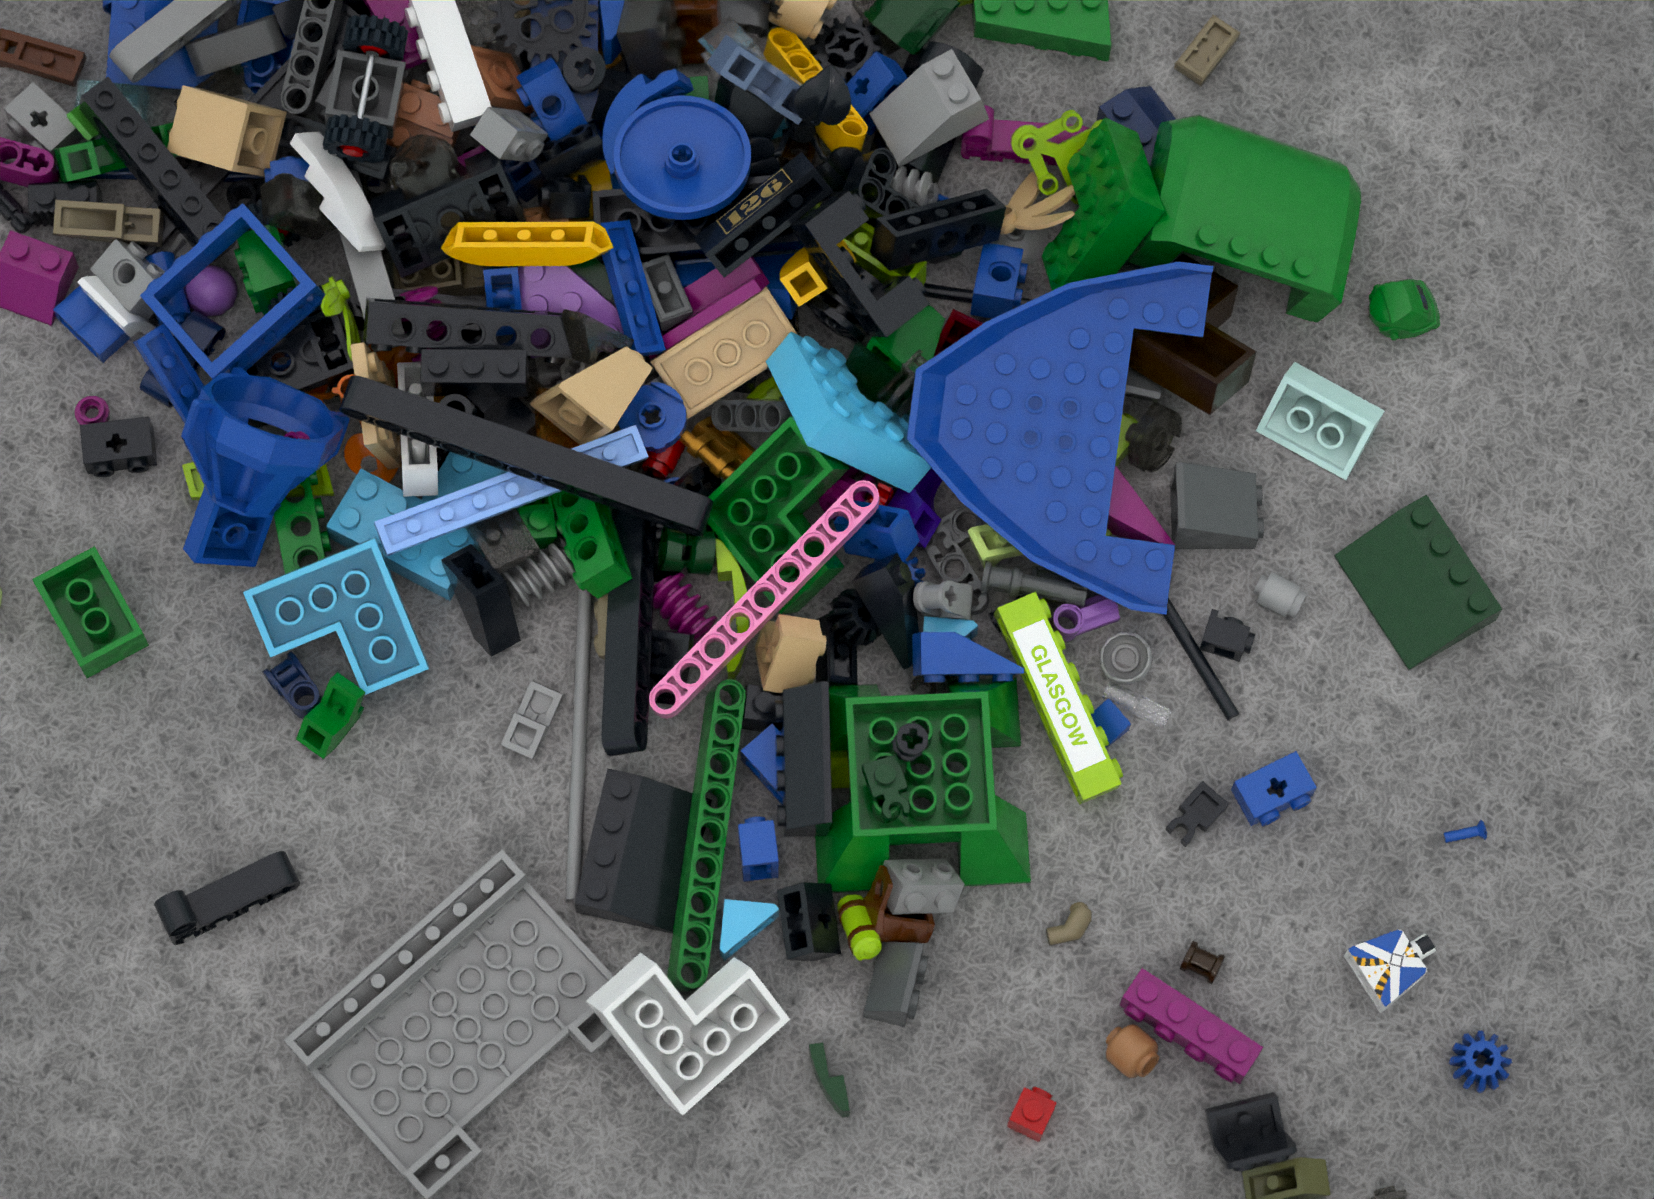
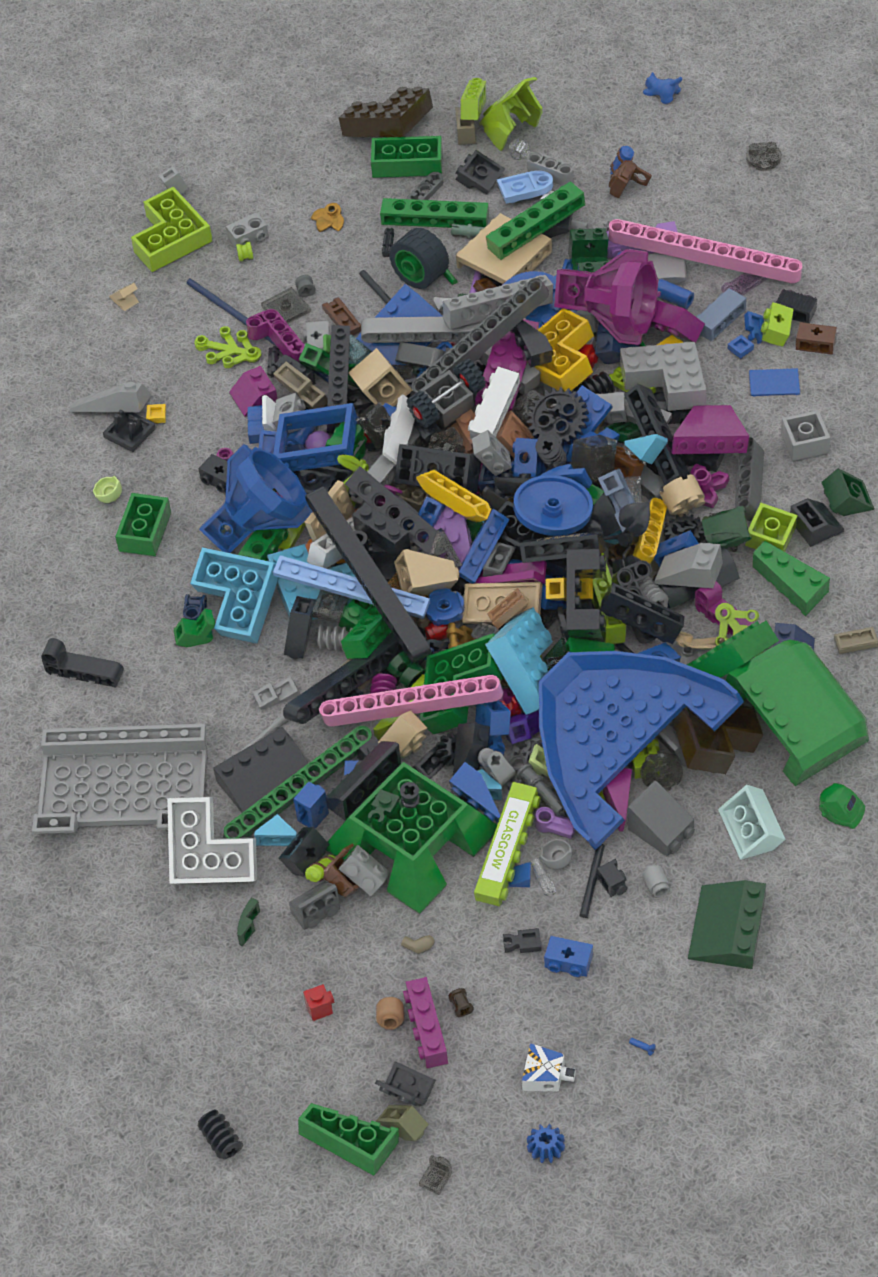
camera: 50 degrees right, 20 degrees down
(756, 359) = (507, 608): none -> medium nougat plate

